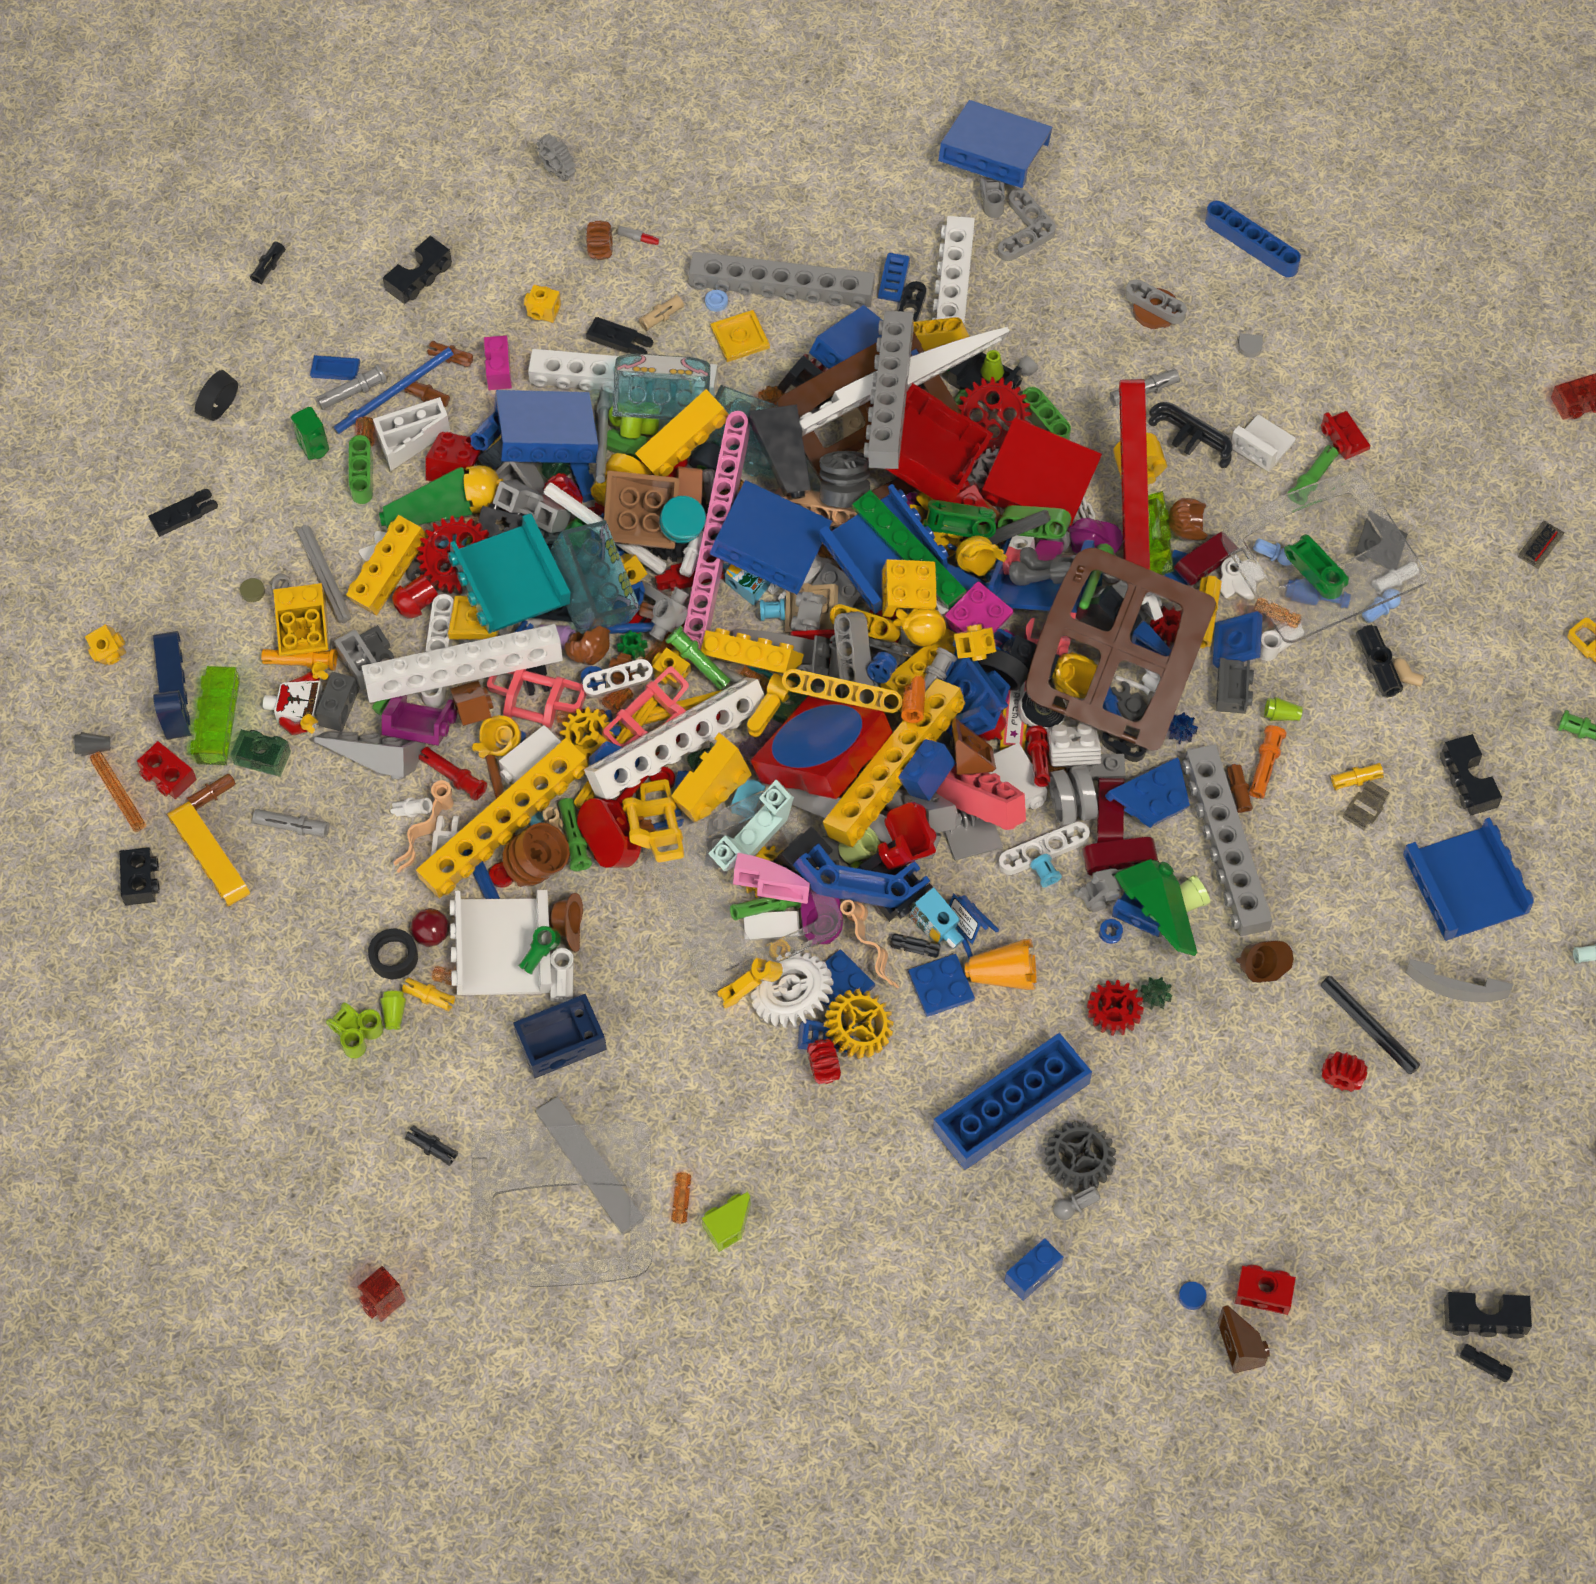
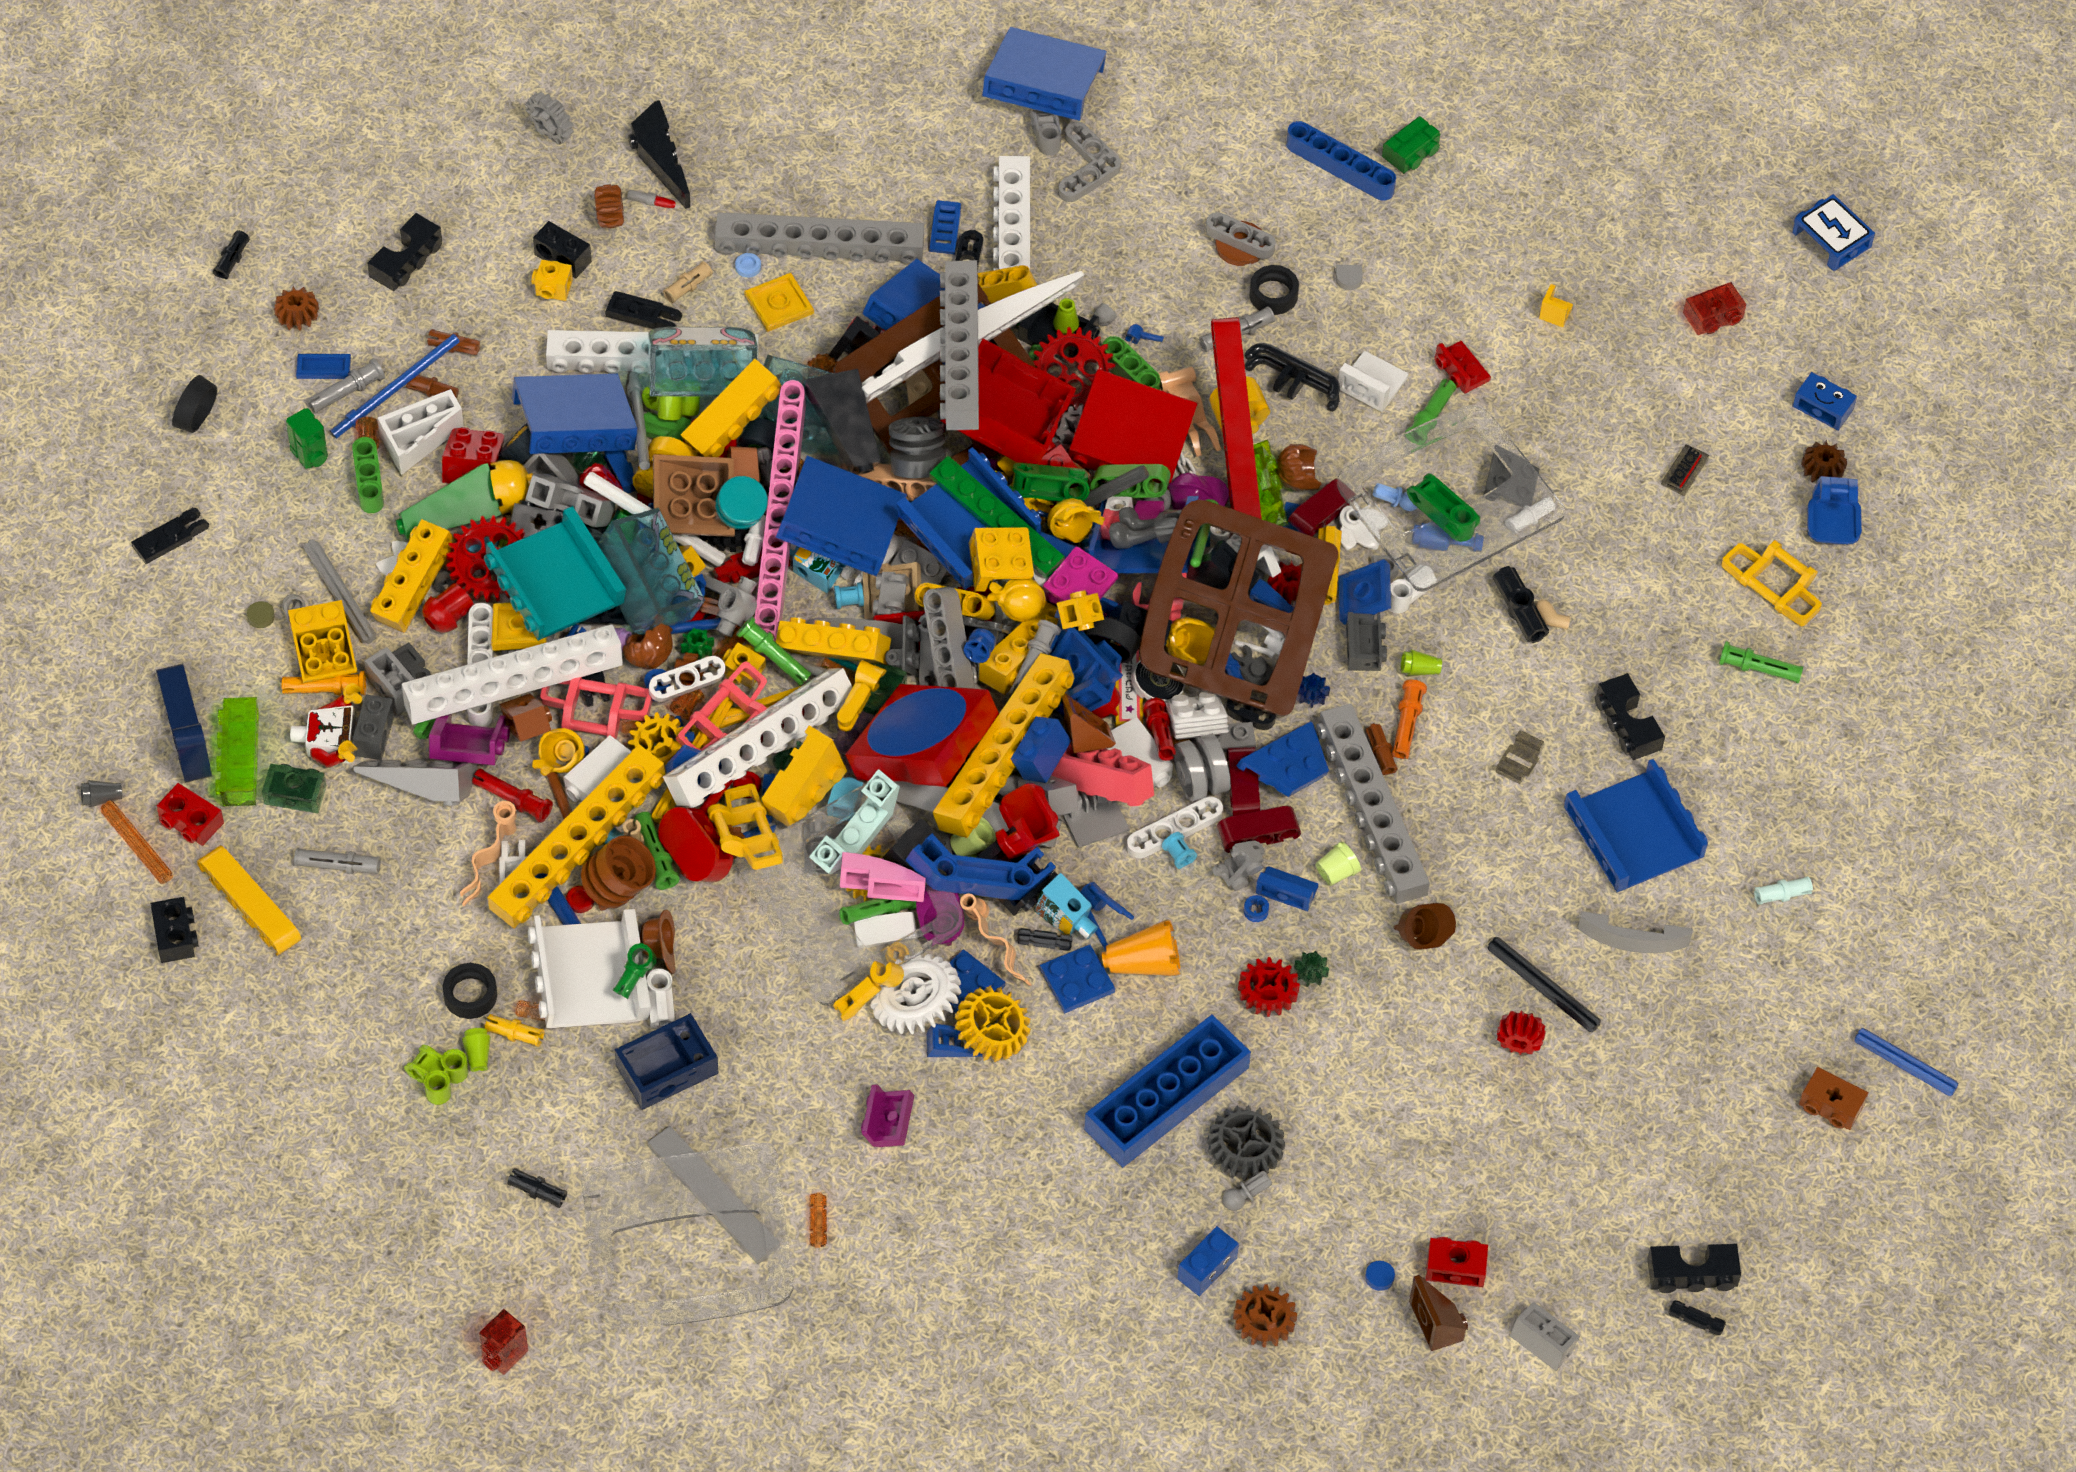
camera: 10 degrees left, 5 degrees down
(106, 645) = (103, 685): yellow brick -> none
(211, 791) = (244, 833): dark orange axle -> none
(317, 314) = (296, 308): none -> dark orange gear
(411, 807) = (472, 833): white axle -> none
(429, 927) = (507, 960): dark red hair -> none
(486, 432) = (508, 423): blue piece -> none
(497, 362) = (509, 348): dark pink brick -> none
(552, 273) = (559, 245): none -> black brick
(647, 193) = (656, 150): none -> black wedge
(728, 1222) = (871, 1241): lime slope -> none
(754, 1104) = (887, 1117): none -> magenta bracket
(824, 1061) = (959, 1065): red gear -> none
(830, 686) = (926, 666): yellow beam -> none
(914, 700) = (1019, 677): orange hinge -> none
(968, 923) = (1102, 910): sticker -> none
(1055, 384) = (1137, 332): none -> blue hand
(1071, 1330) = (1257, 1324): none -> dark orange gear
(1089, 436) = (1181, 385): none -> light nougat flag
(1162, 901) = (1309, 869): green wedge -> none
(1181, 338) = (1274, 273): none -> black tyre
(1277, 612) = (1406, 559): clear orange axle -> none
(1317, 228) = (1411, 145): none -> green brick
(1341, 1369) = (1544, 1336): none -> light grey hinge
(1357, 776) = (1507, 727): yellow pin -> none
(1374, 613) = (1510, 554): light blue axle -> none
(1434, 387) = (1554, 309): none -> yellow panel

